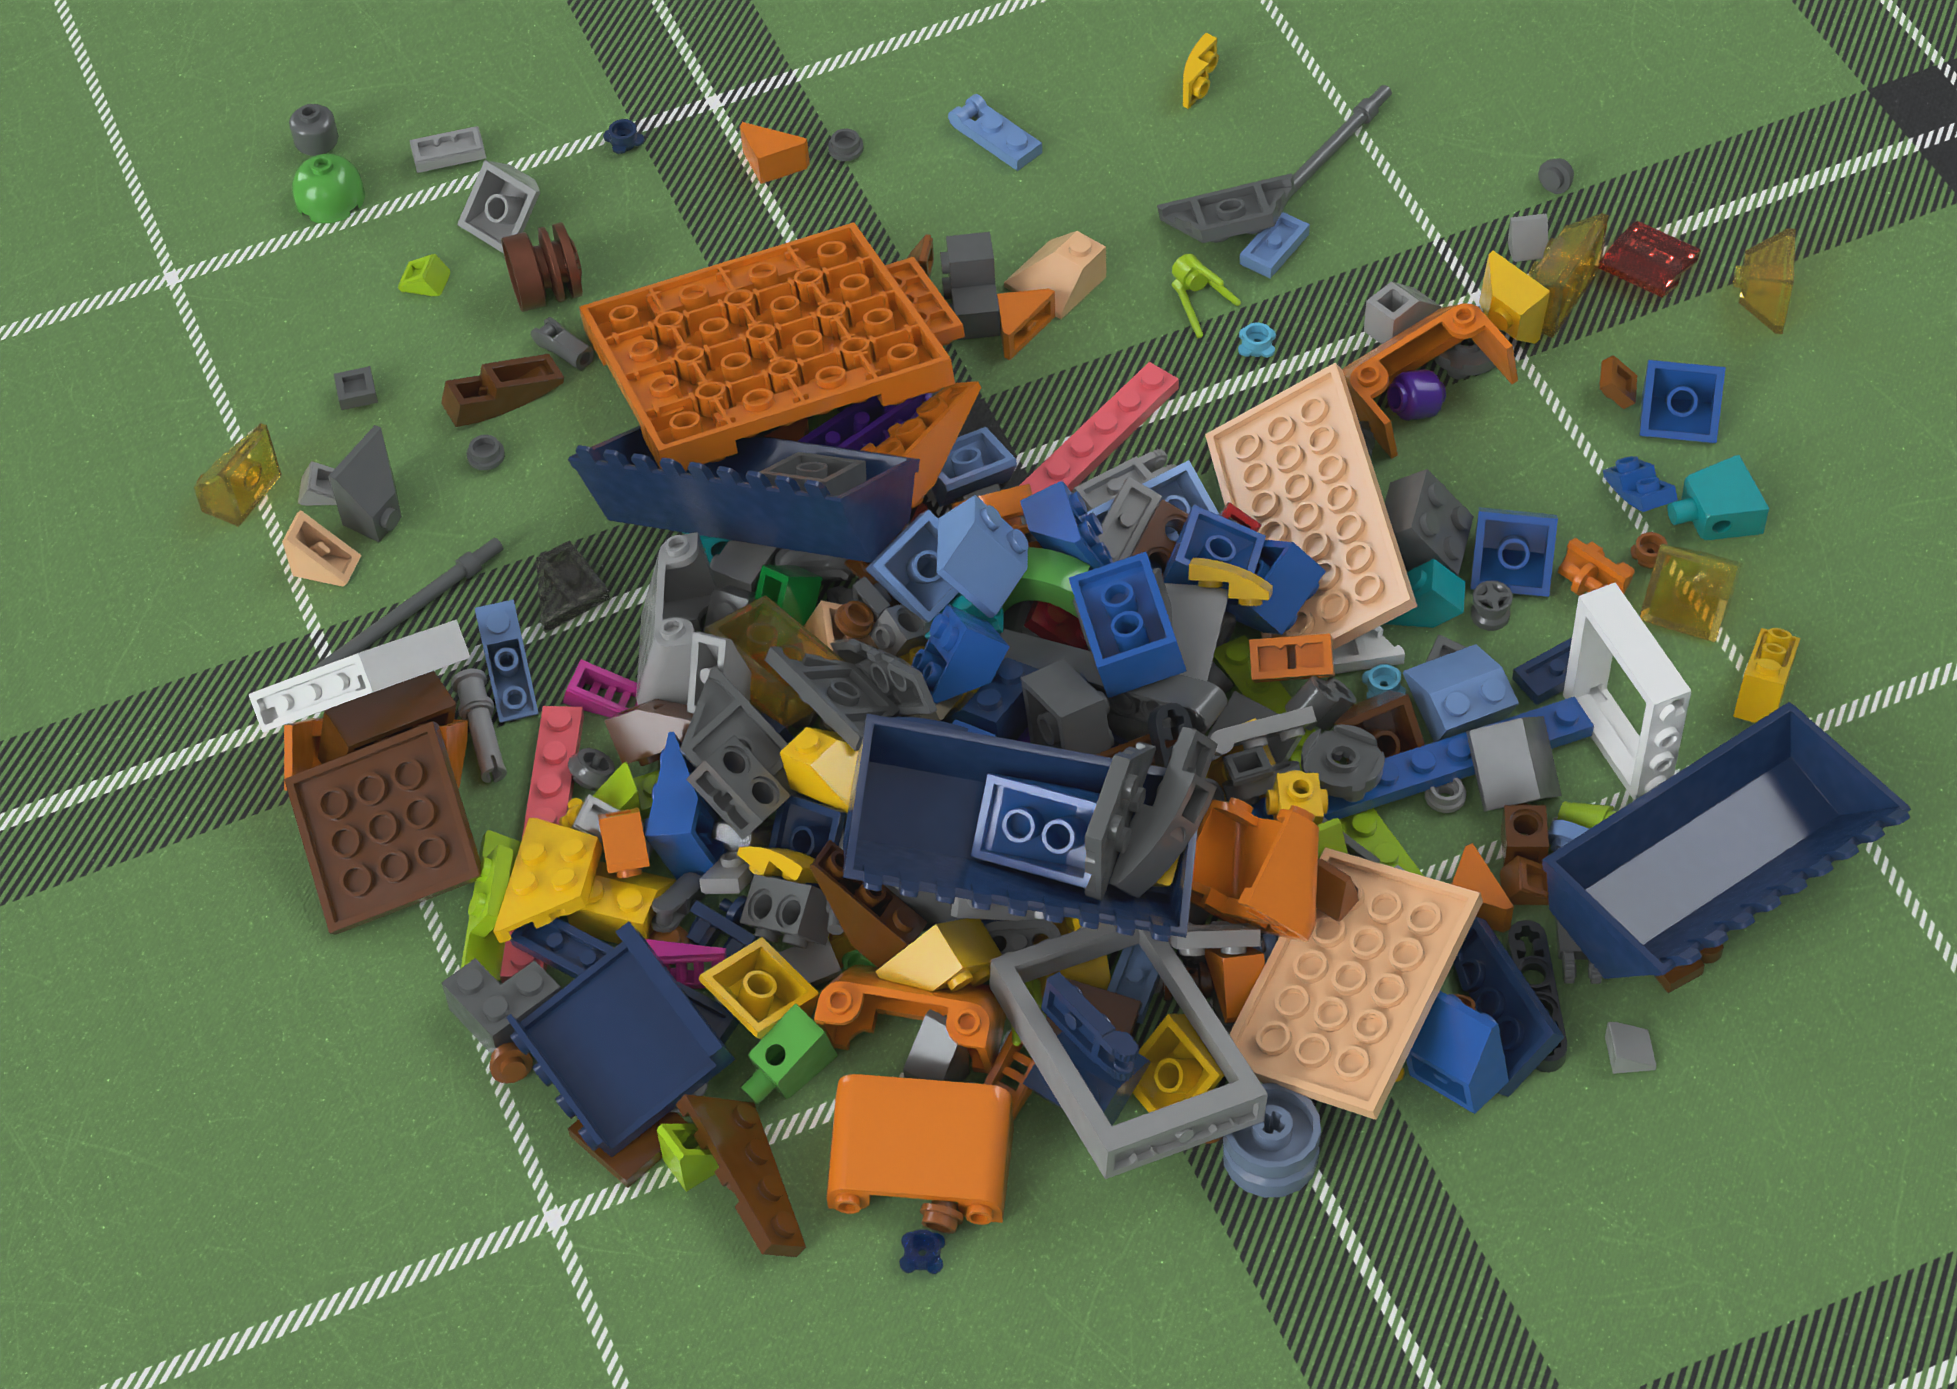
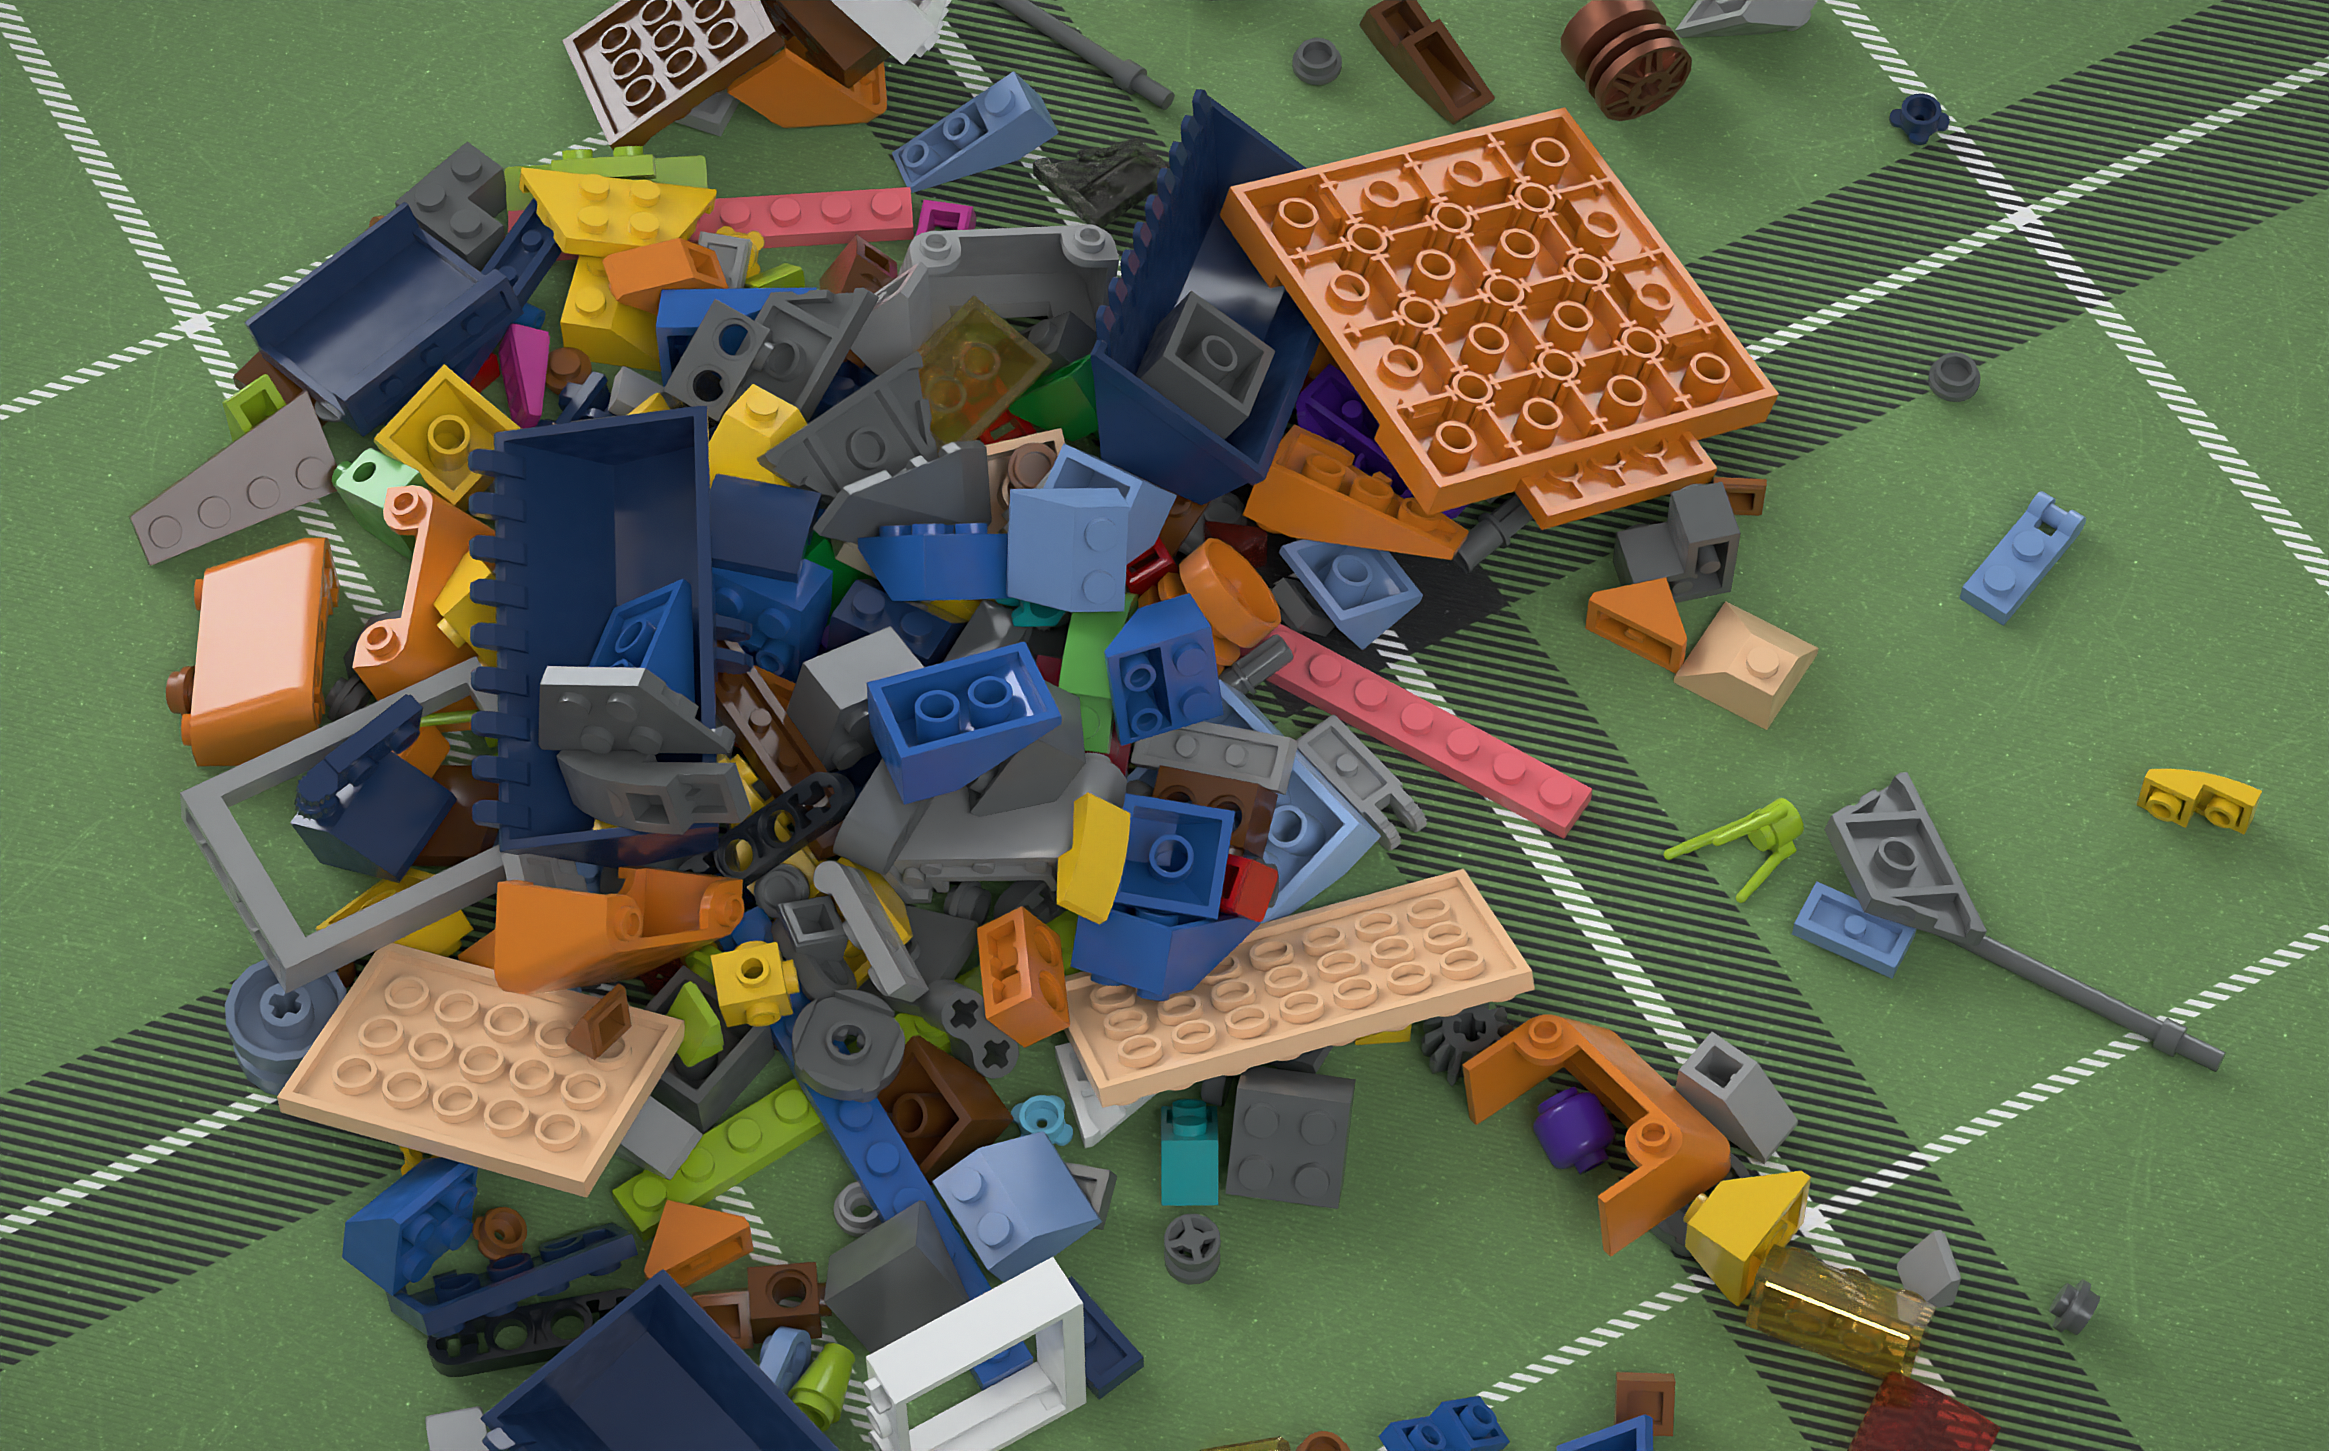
camera: 80 degrees right, 5 degrees up
(478, 710) = (895, 121): light grey pin -> none
(563, 344) = (1519, 107): dark grey bar -> none
(590, 768) = (814, 249): dark grey hat -> none
(676, 902) = (599, 353): dark grey bar -> none
(773, 152) = (1908, 286): orange slope -> none
(922, 1240) = (141, 670): clear blue plate -> none
(1257, 340) = (1662, 910): medium azure plate -> none
(1515, 550) = (1295, 1270): blue slope -> none
(1590, 569) = (1283, 1364): orange hips -> none

